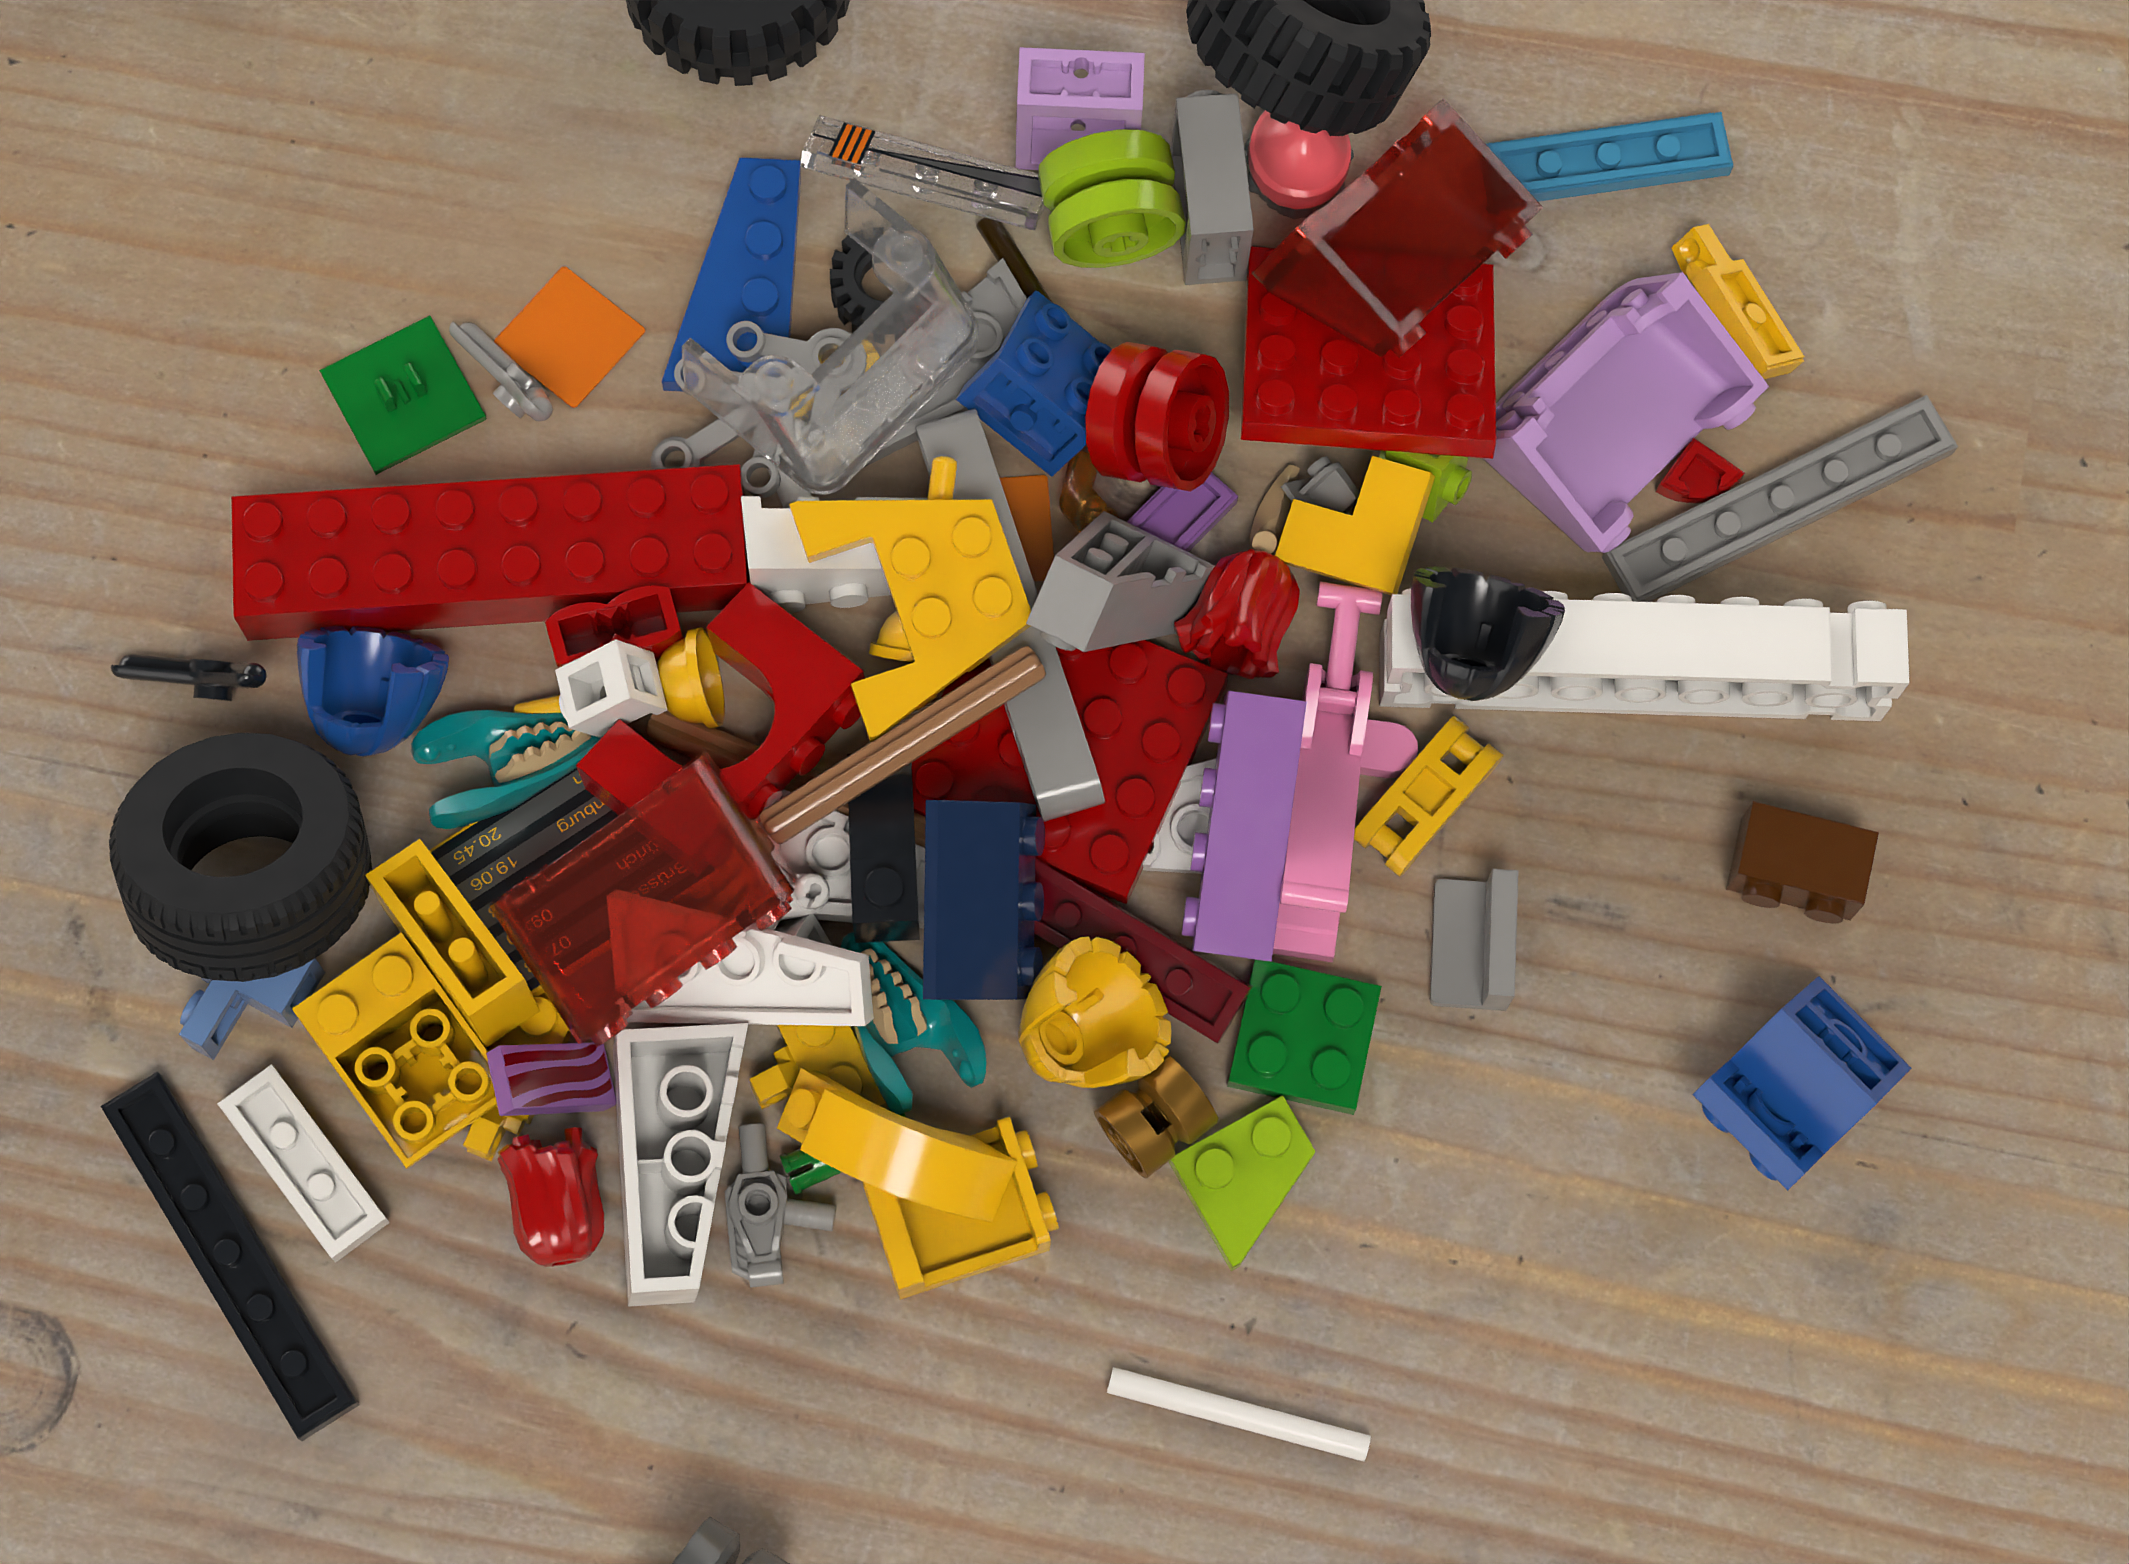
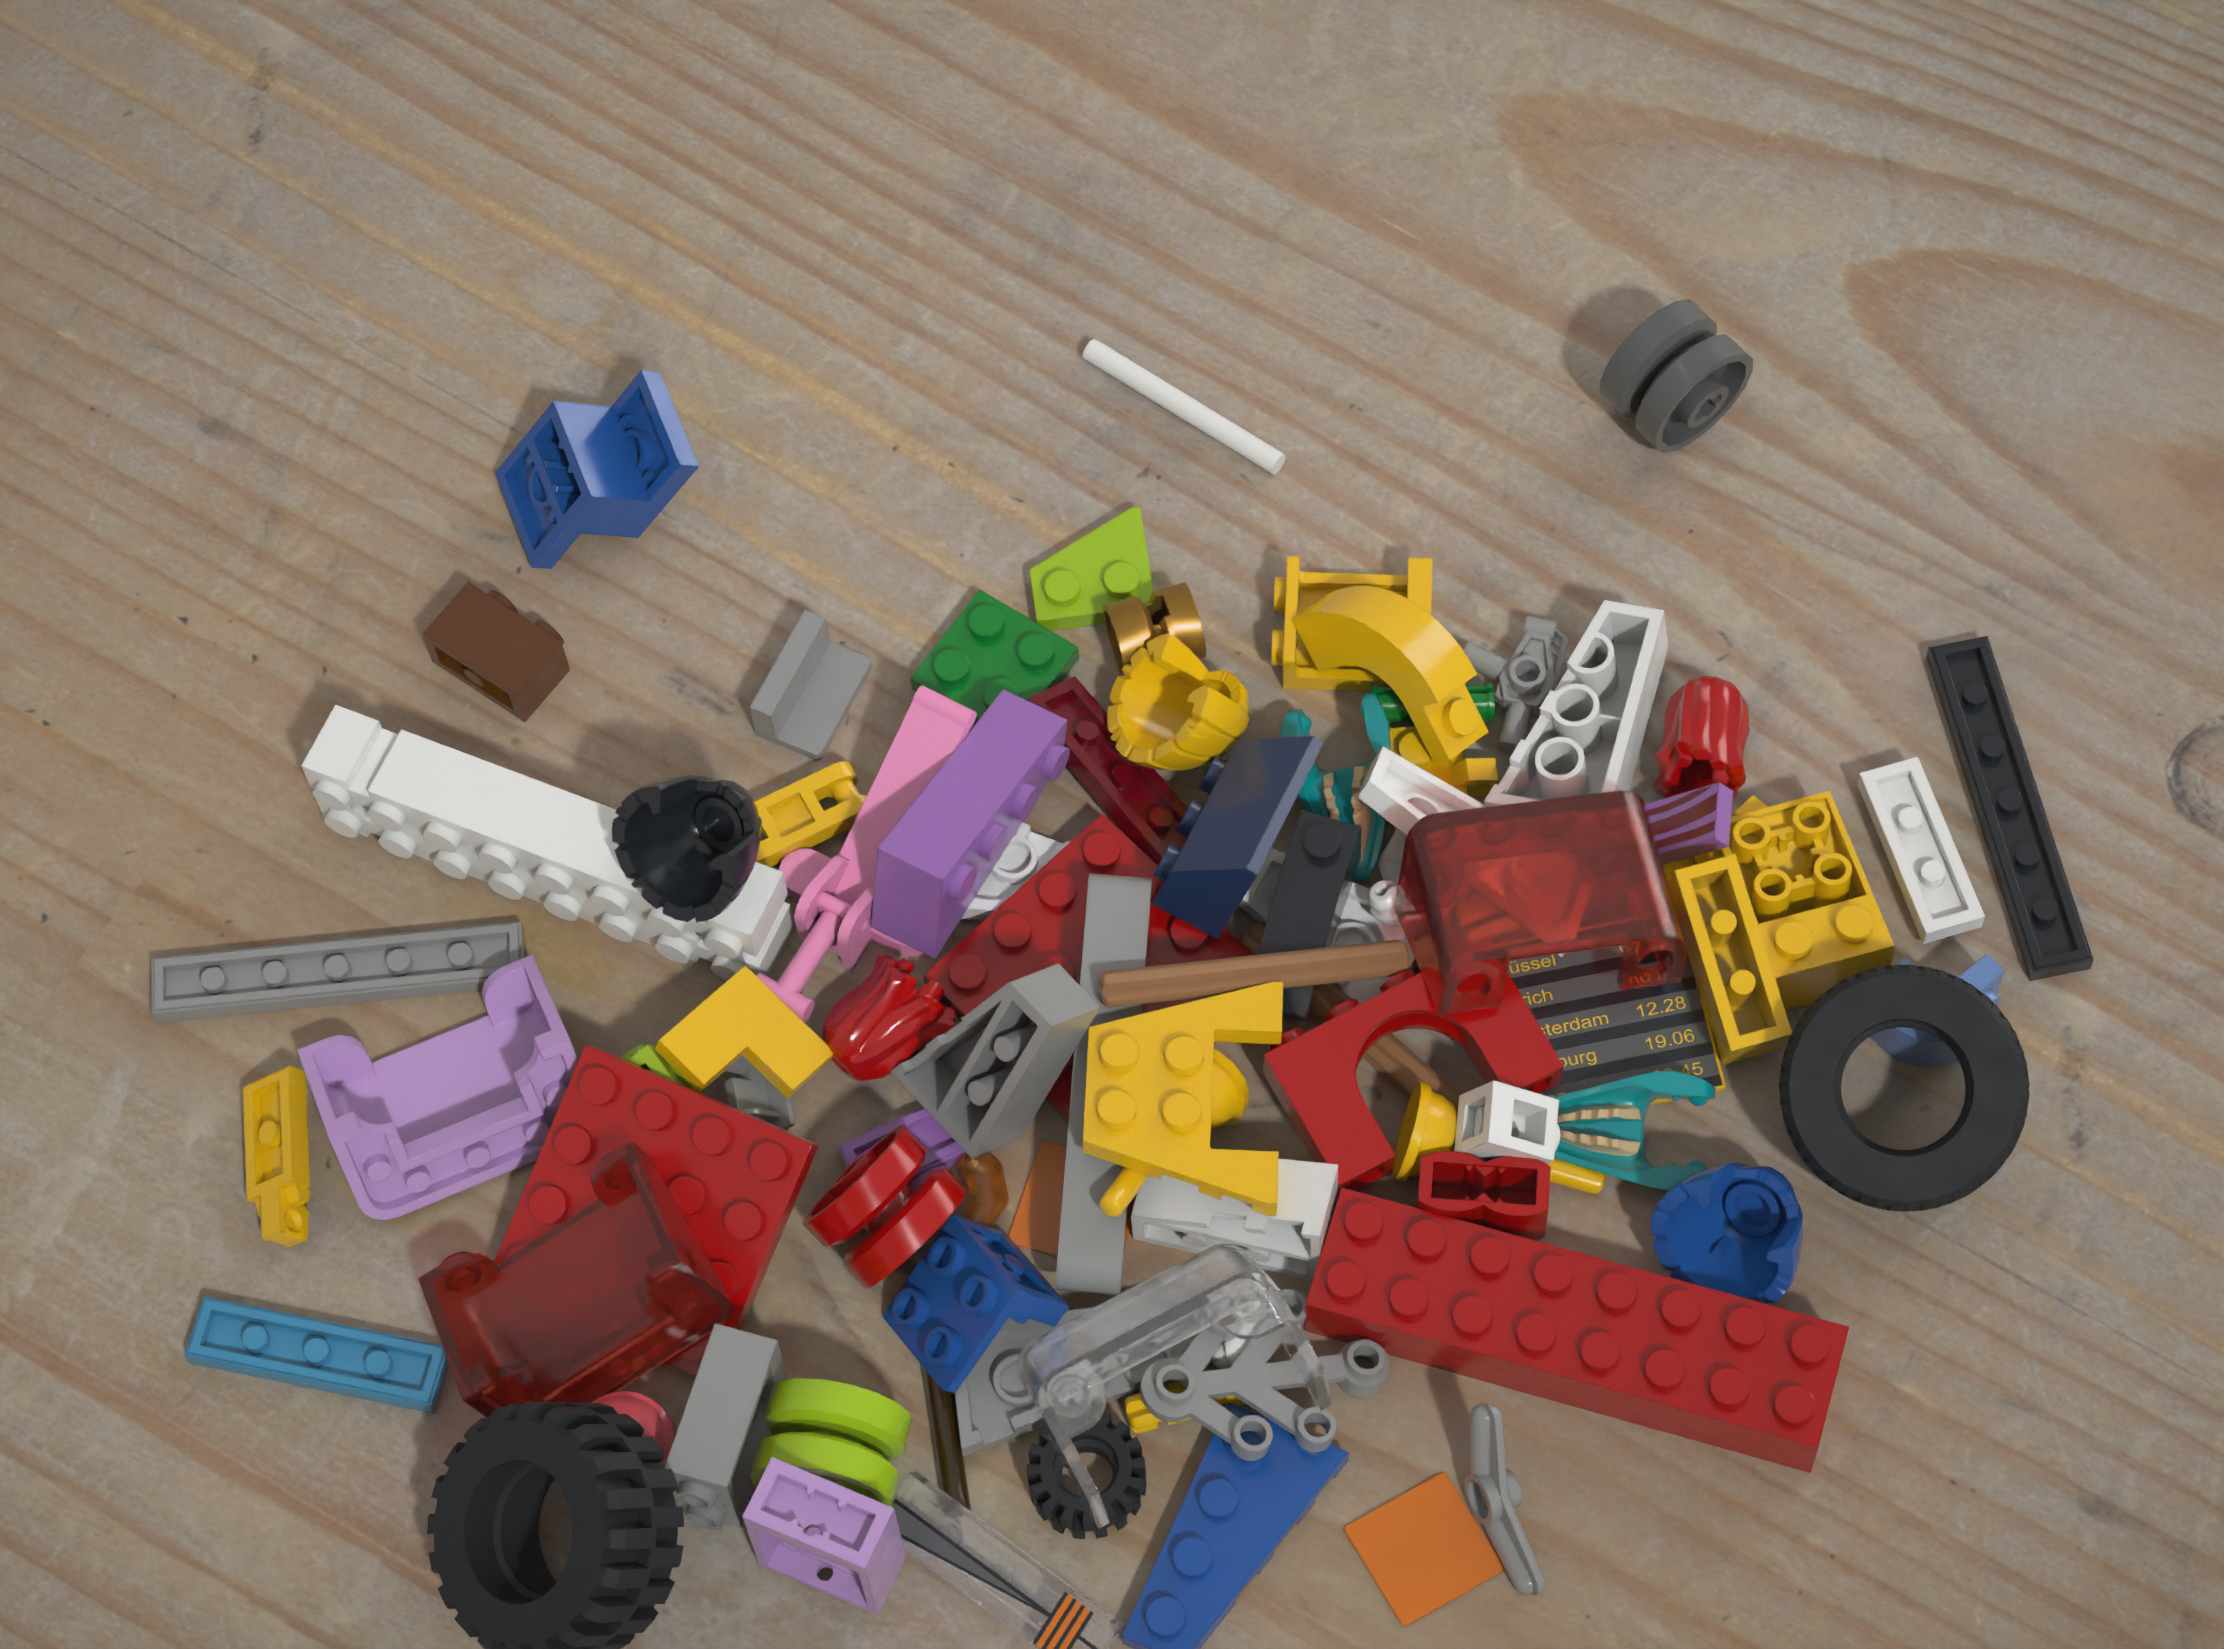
camera: 150 degrees left, 10 degrees down
(210, 678) = (1885, 1314): black piece -> none
(403, 395) = (1612, 1546): green piece -> none
(1272, 514) = (824, 1105): tan bar -> none
(1699, 475) = (400, 1021): red tile -> none

